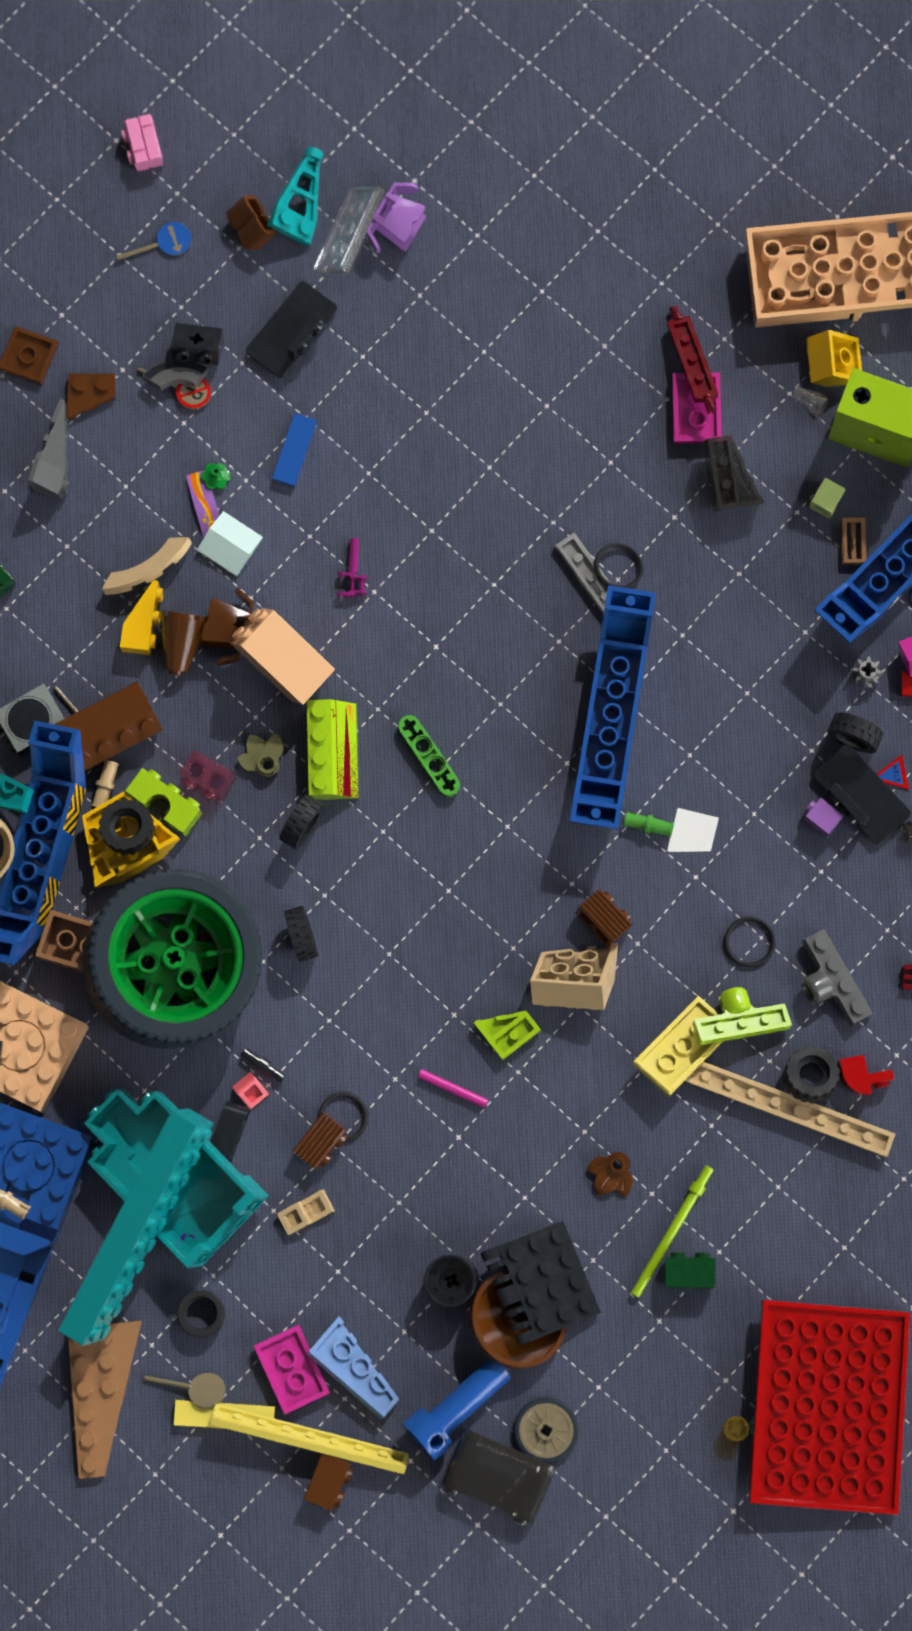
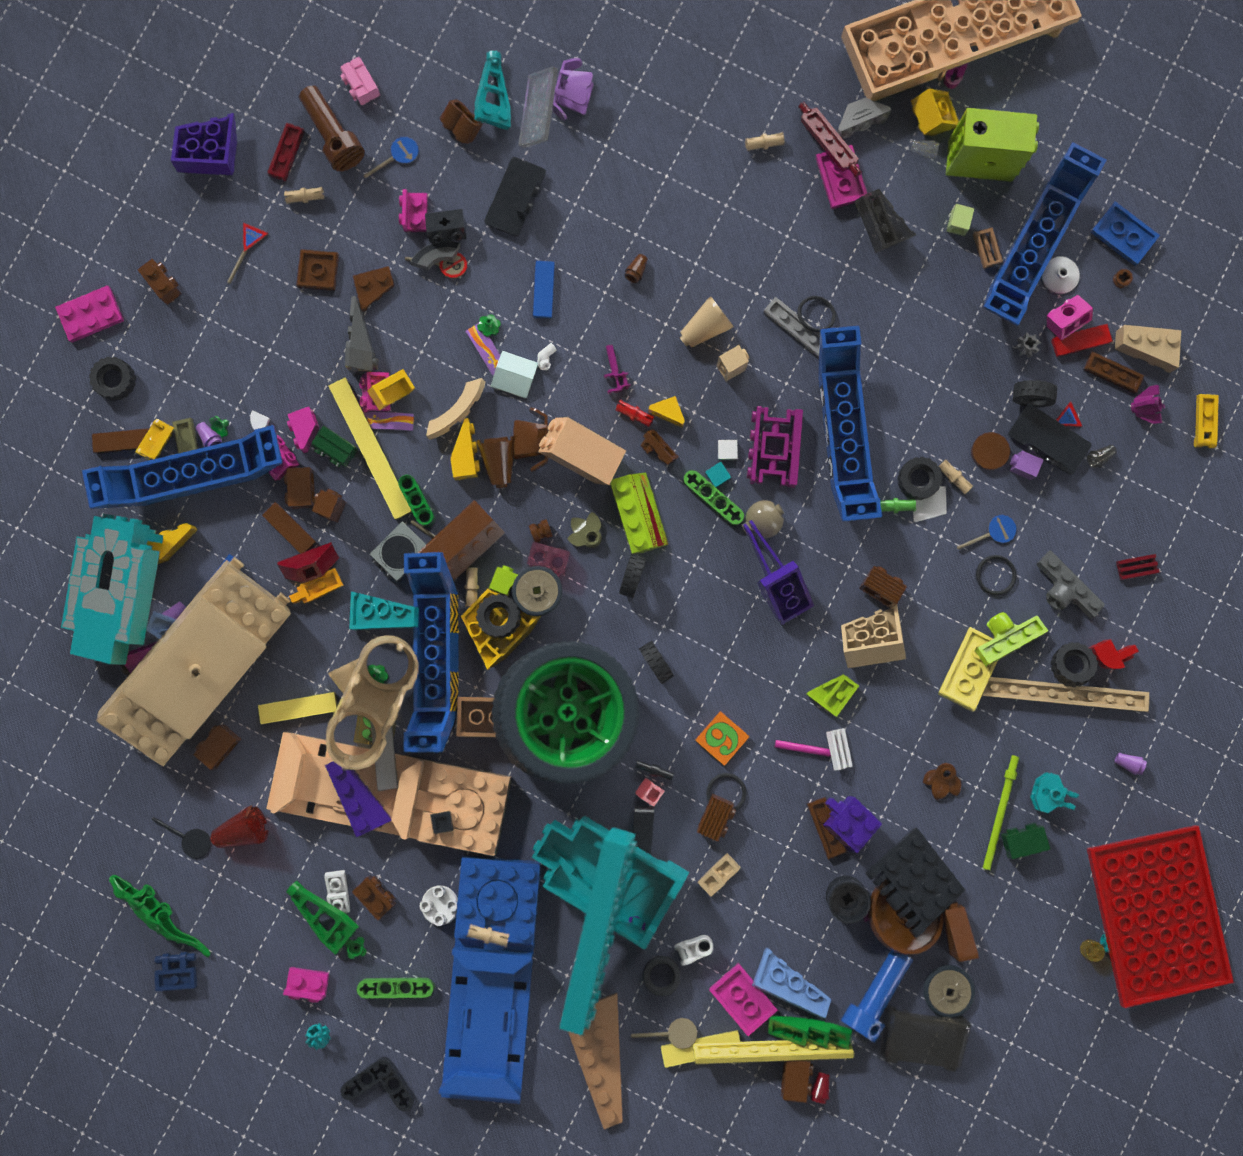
camera: 20 degrees left, 5 degrees up
(30, 204) = (286, 152): none -> dark red tile
(31, 587) = (370, 448): none -> light yellow tile
(37, 262) = (304, 195): none -> tan pin
(55, 520) = (365, 383): none -> dark pink bracket
(61, 559) = (390, 420): none -> medium lavender sticker
(66, 653) = (410, 494): none -> green beam
(75, 522) = (391, 389): none -> yellow panel
(97, 219) = (340, 146): none -> reddish brown piece
(163, 315) = (413, 211): none -> dark pink bracket
(178, 824) = (540, 603): none -> dark tan wheel
(207, 739) = (540, 530): none -> reddish brown wheel
(248, 1292) = (693, 950): none -> white piece
(271, 532) = (543, 357): none -> white arm
(355, 1503) = (820, 1089): none -> dark red cone
(356, 1049) = (722, 738): none -> tile
(362, 628) = (634, 413): none -> red pin
(362, 1428) = (809, 1030): none -> green slope
(377, 670) = (655, 441): none -> reddish brown hinge
(403, 635) = (668, 410): none -> yellow slope
(413, 454) = (636, 269): none -> reddish brown cone
(442, 729) = (717, 474): none -> teal tile
(453, 1192) = (820, 814): none -> reddish brown tile
(463, 702) = (727, 449): none -> white tile
(478, 543) = (705, 324): none -> tan cone
(479, 882) = (784, 588): none -> dark purple slope
(481, 798) = (766, 517): none -> dark tan brick
(481, 1190) = (851, 823): none -> dark purple hinge
(497, 598) = (733, 362): none -> tan brick
(498, 1100) = (841, 749): none -> white tile
(538, 720) = (791, 448): none -> magenta fence
(576, 1357) = (959, 933): none -> reddish brown slope
(614, 341) = (764, 141): none -> tan pin
(693, 781) = (933, 472): none -> black tyre
(732, 808) = (955, 477): none -> tan pin
(740, 341) = (861, 116): none -> light grey slope
(741, 1225) = (1052, 795): none -> teal hinge
(771, 888) = (1000, 528): none -> blue piece
(785, 789) = (990, 451): none -> reddish brown tile
(850, 1215) = (1133, 764): none -> medium lavender cone
(879, 319) = (959, 74): none -> magenta beam

